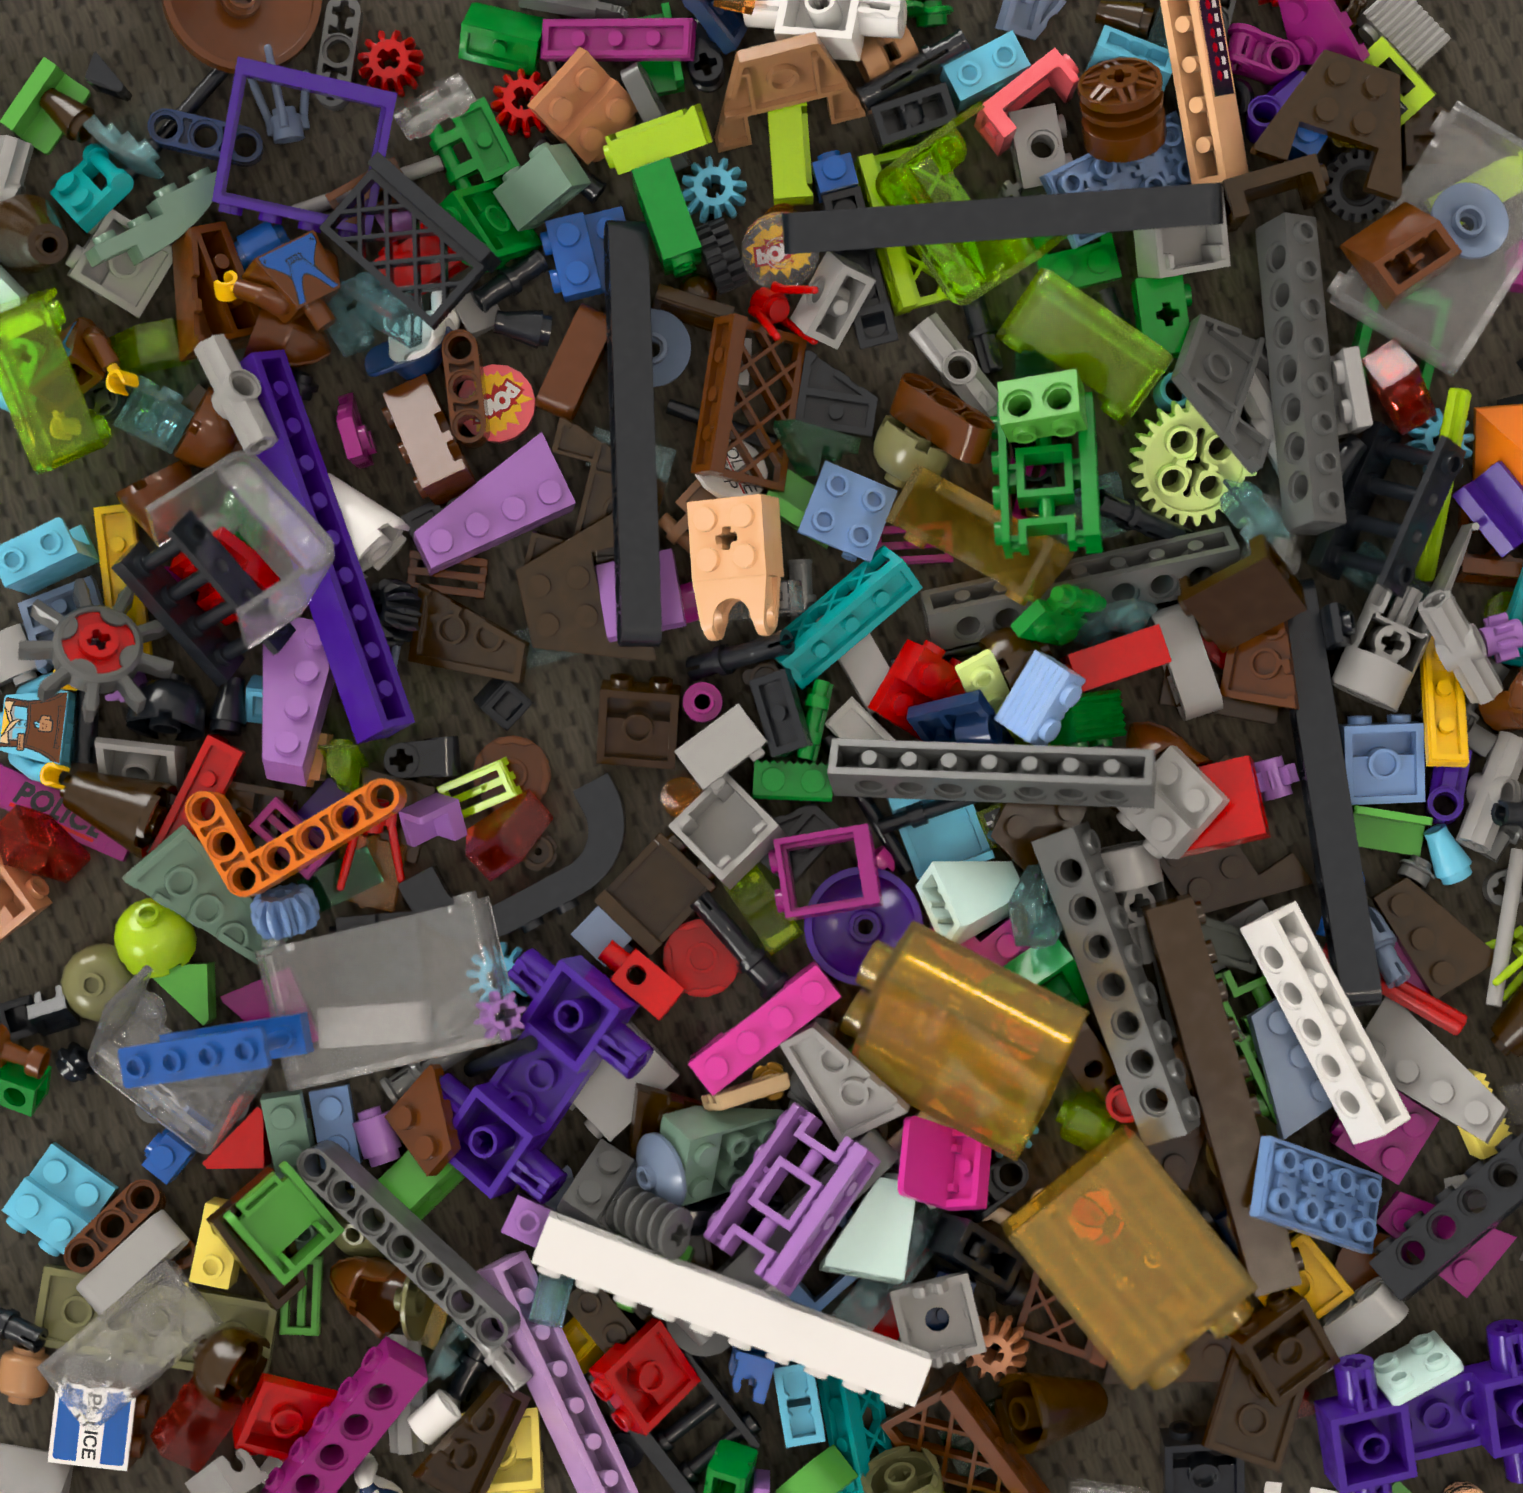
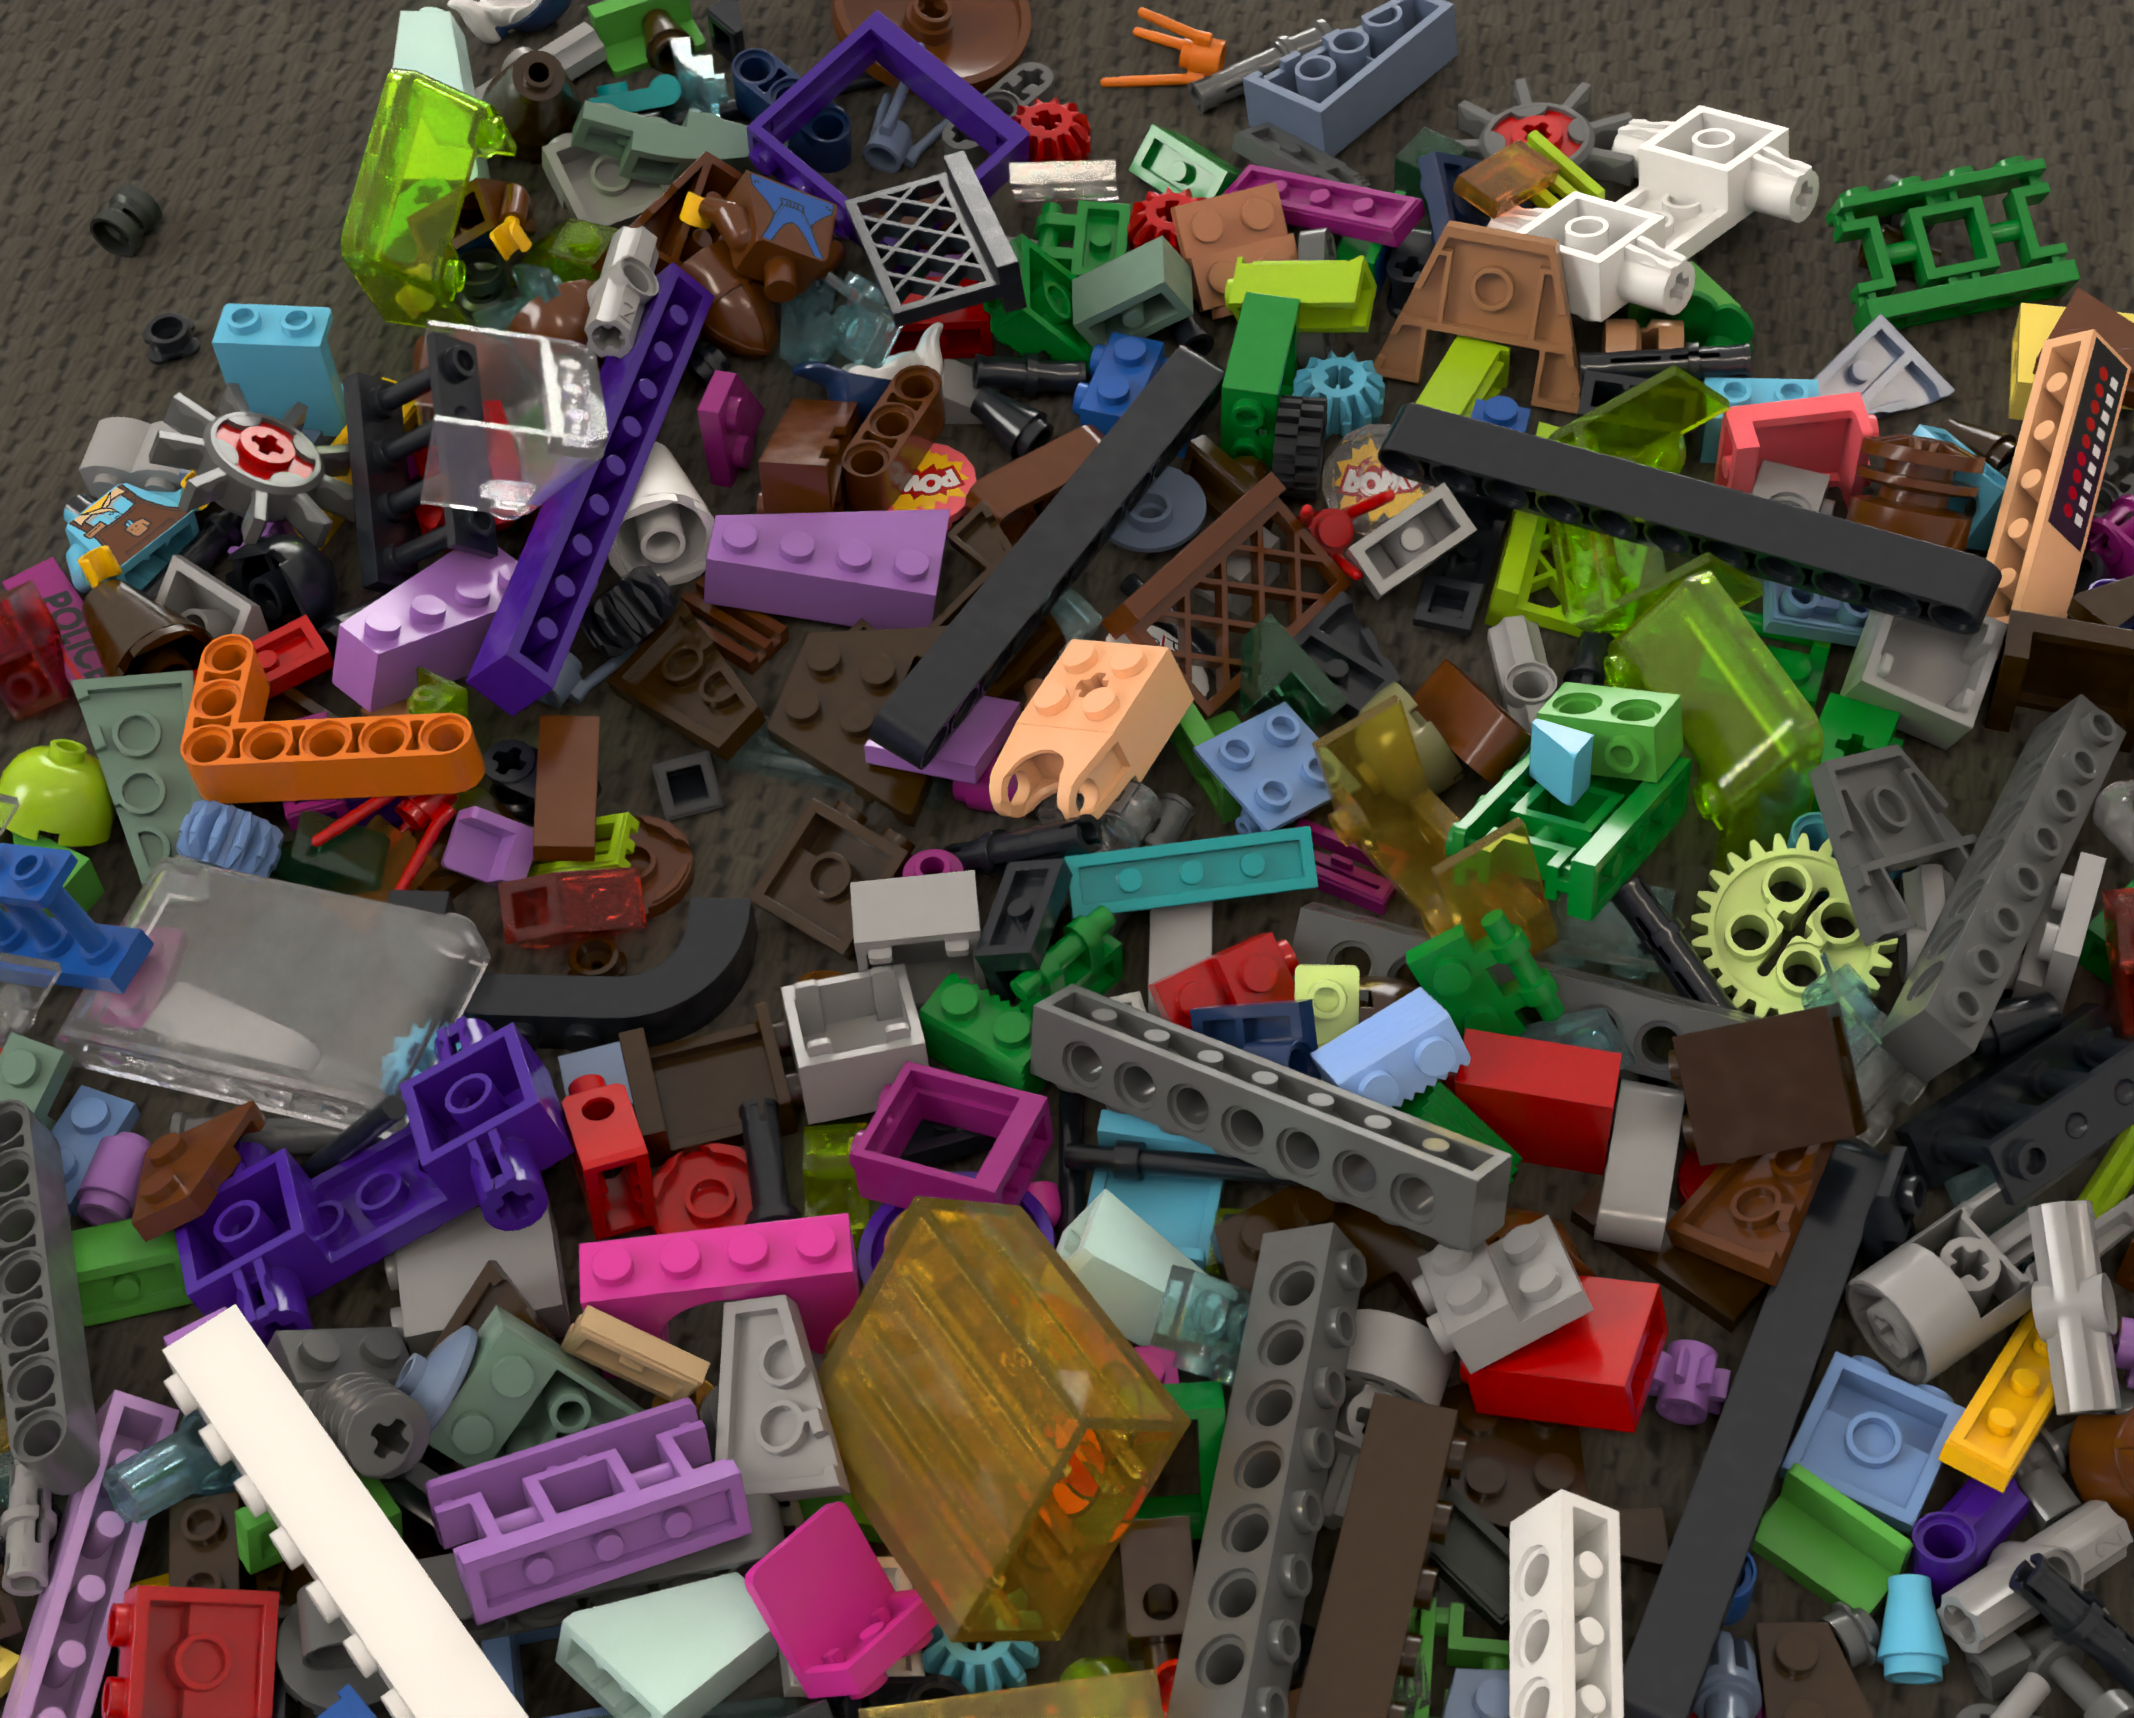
camera: 30 degrees right, 35 degrees down
(453, 764) = (566, 788): none -> reddish brown tile
(512, 1018) = (388, 1036): medium lavender gear -> none
(1028, 448) = (1561, 760): none -> medium azure slope

